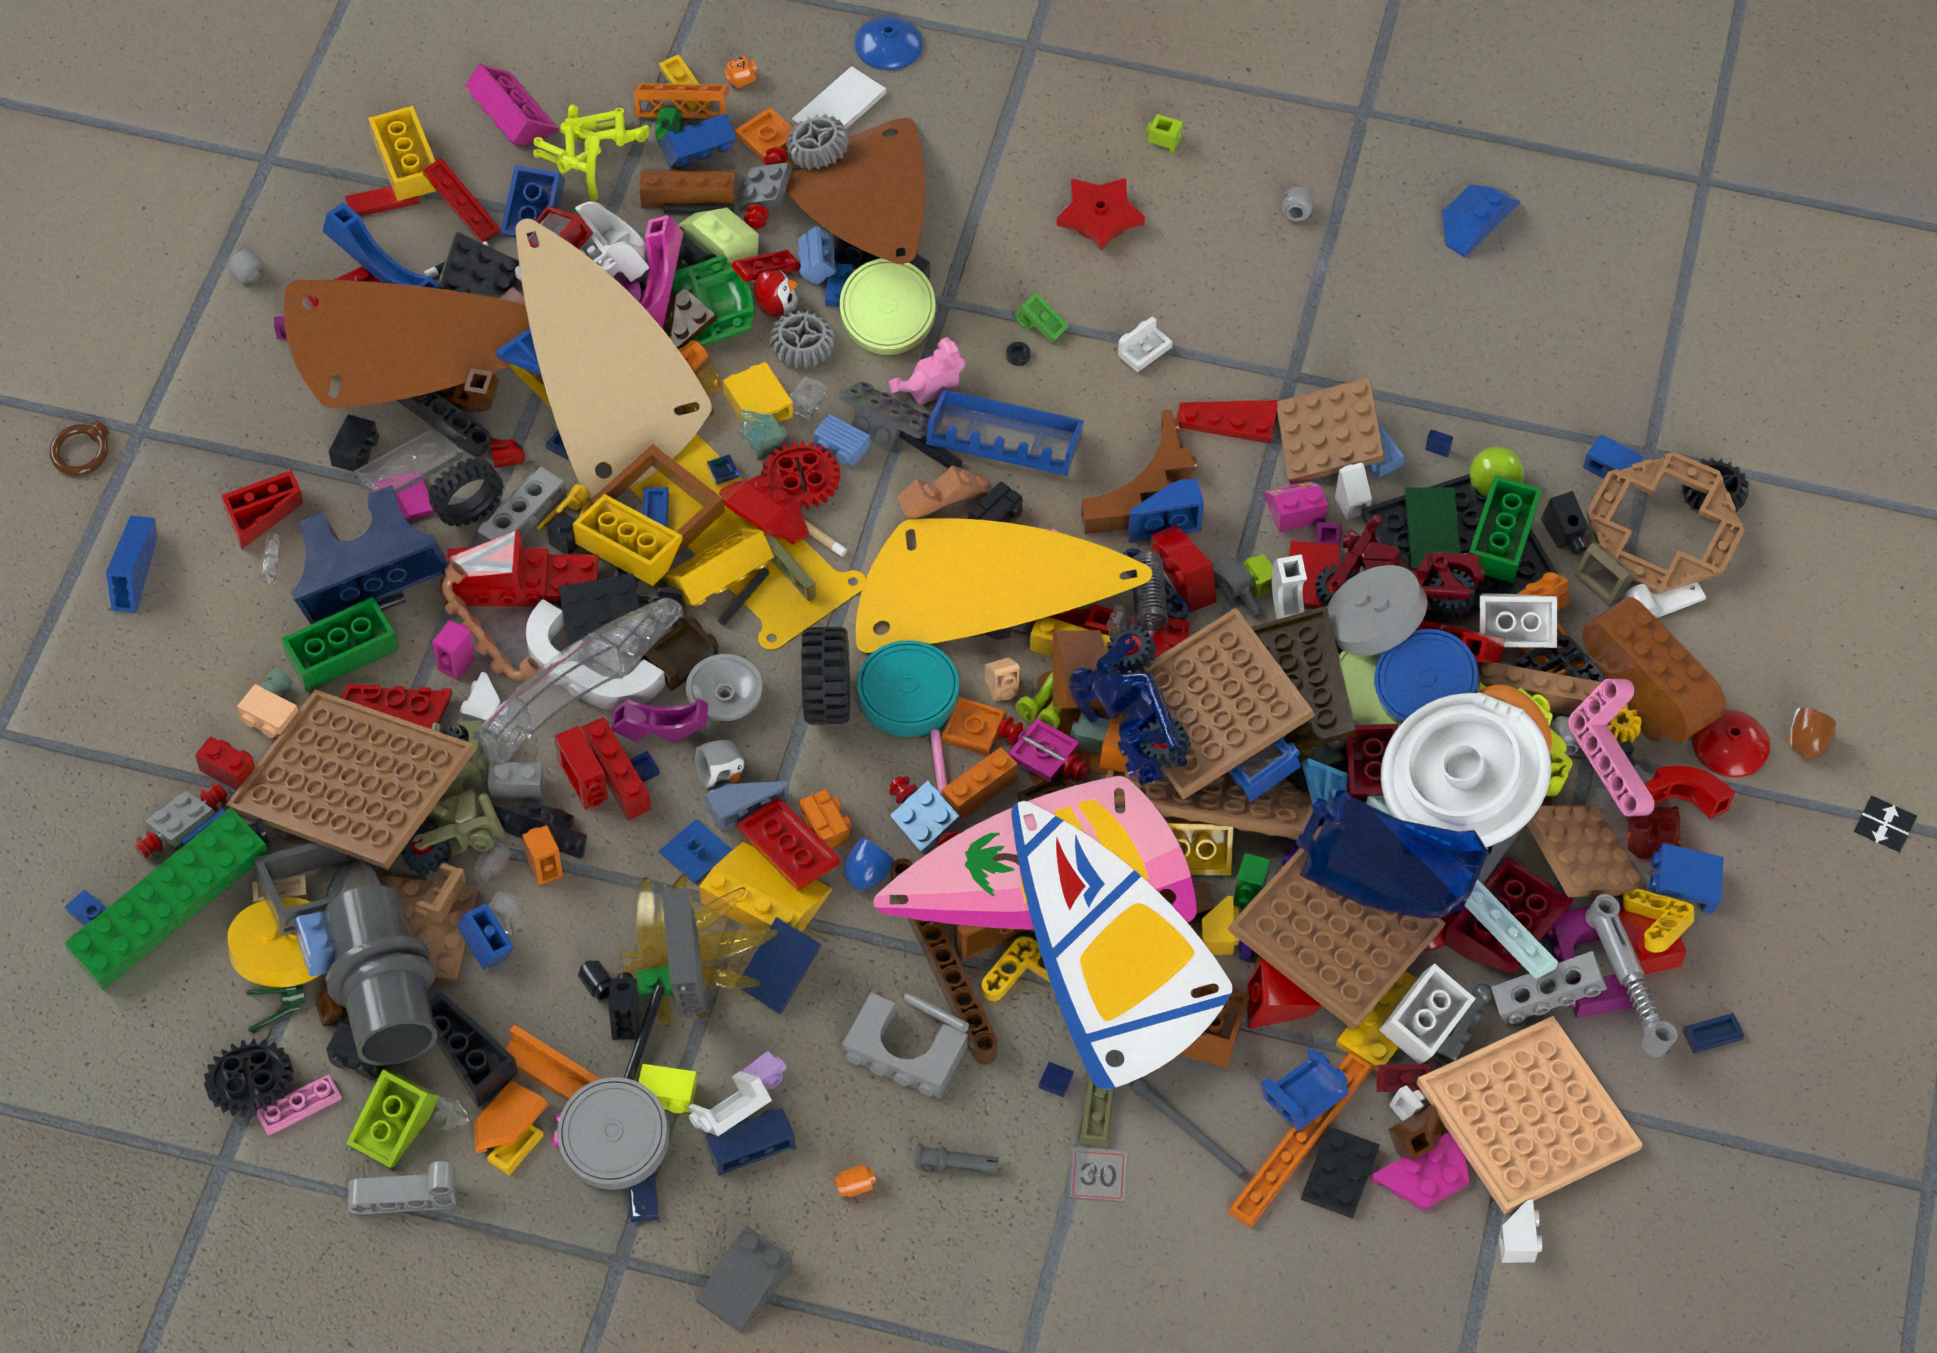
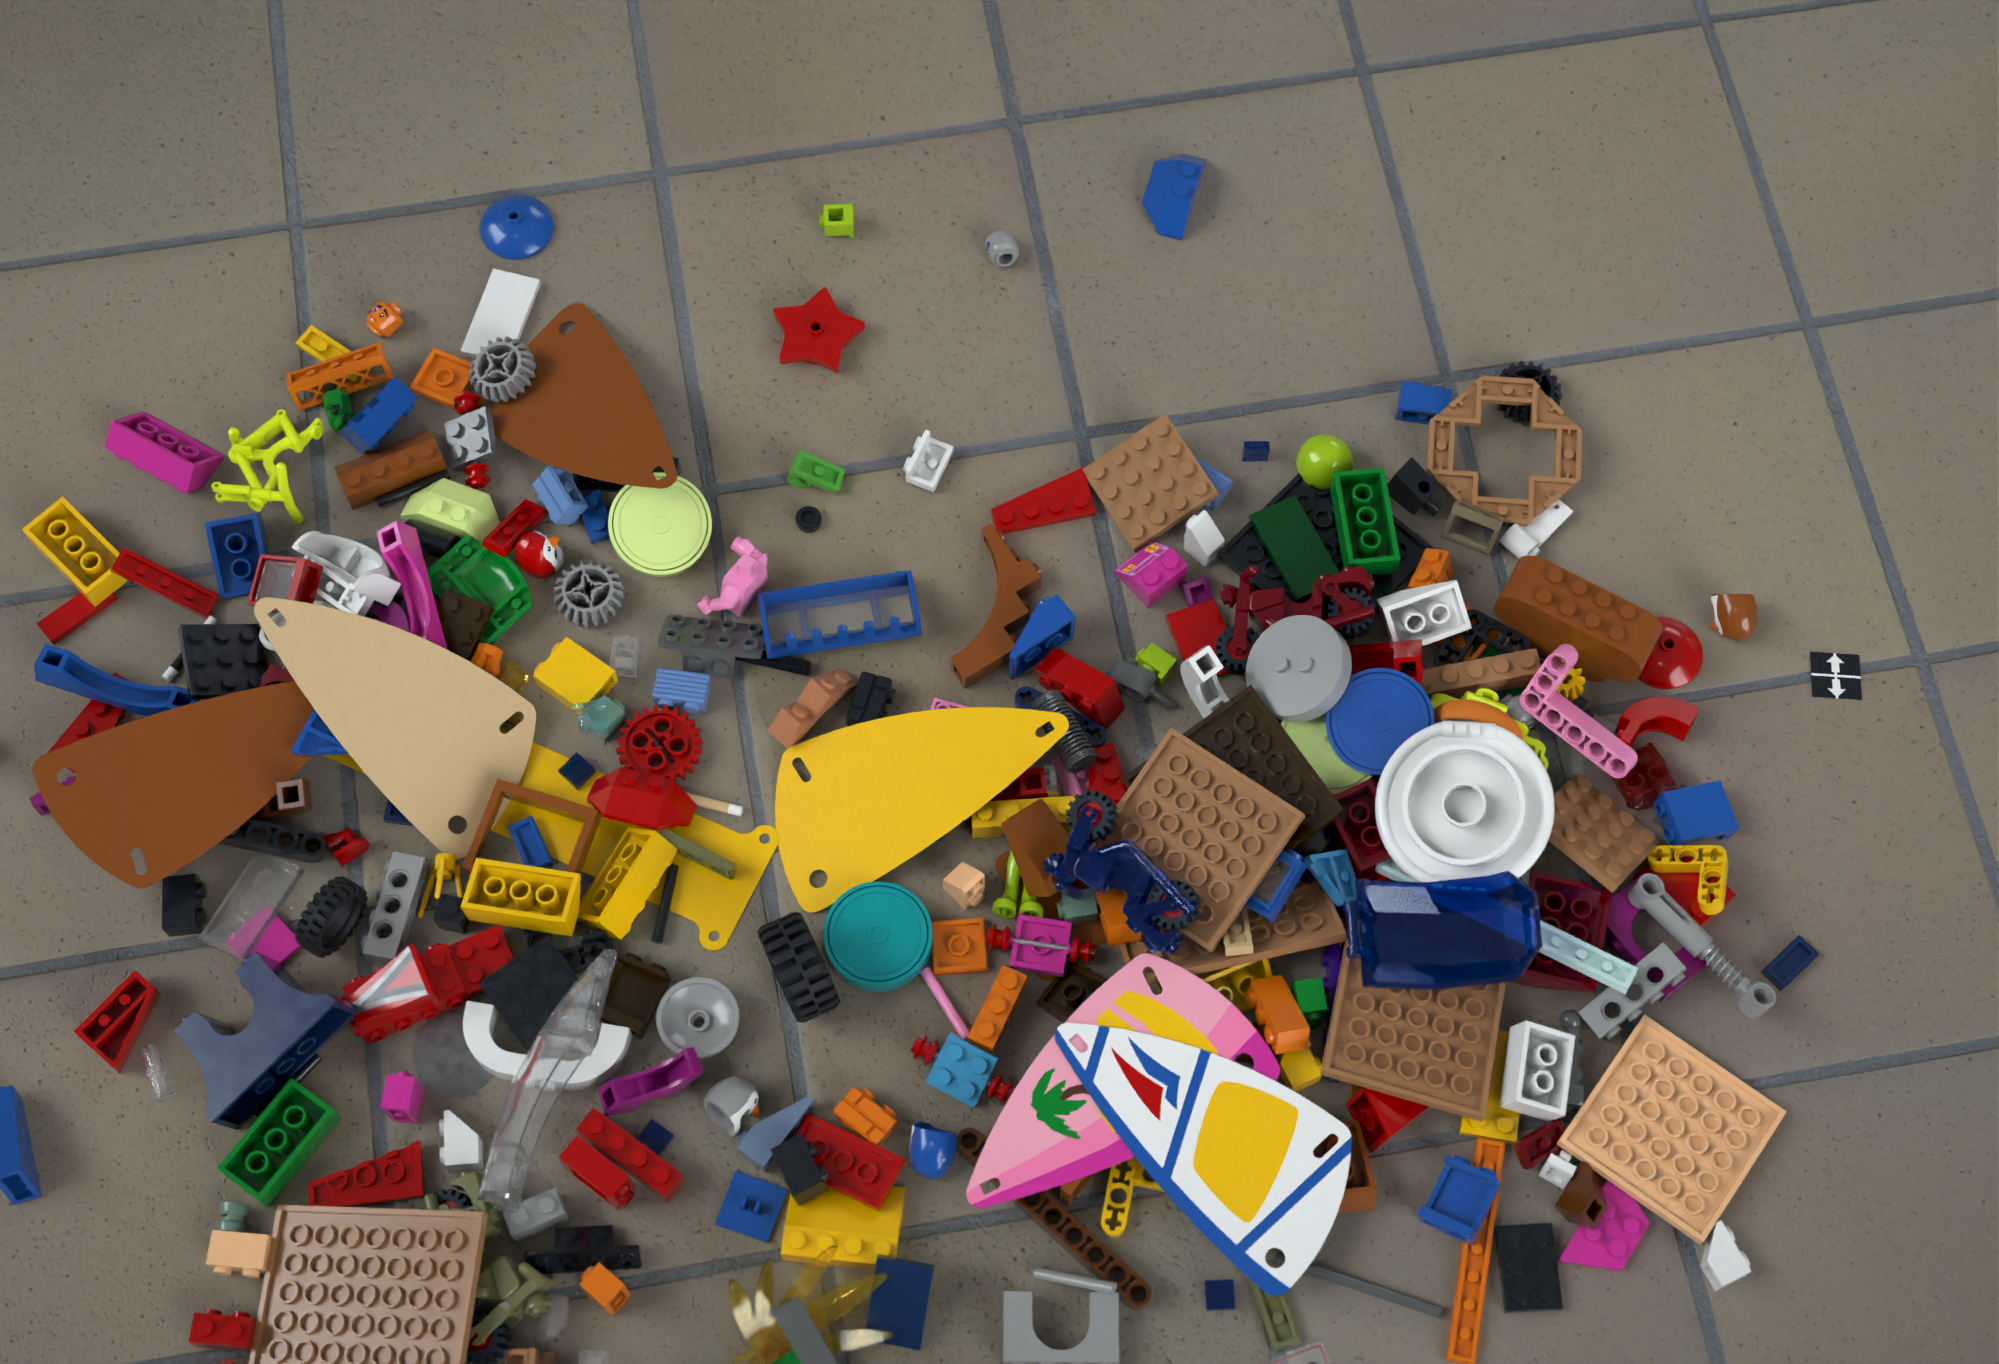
camera: 25 degrees left, 10 degrees up
(485, 642) = (406, 1061): nougat bar -> none
(749, 830) = (800, 1169): none -> black brick
(1213, 795) = (1238, 937): none -> tan plate
(1217, 876) = (1278, 1014): none -> orange brick

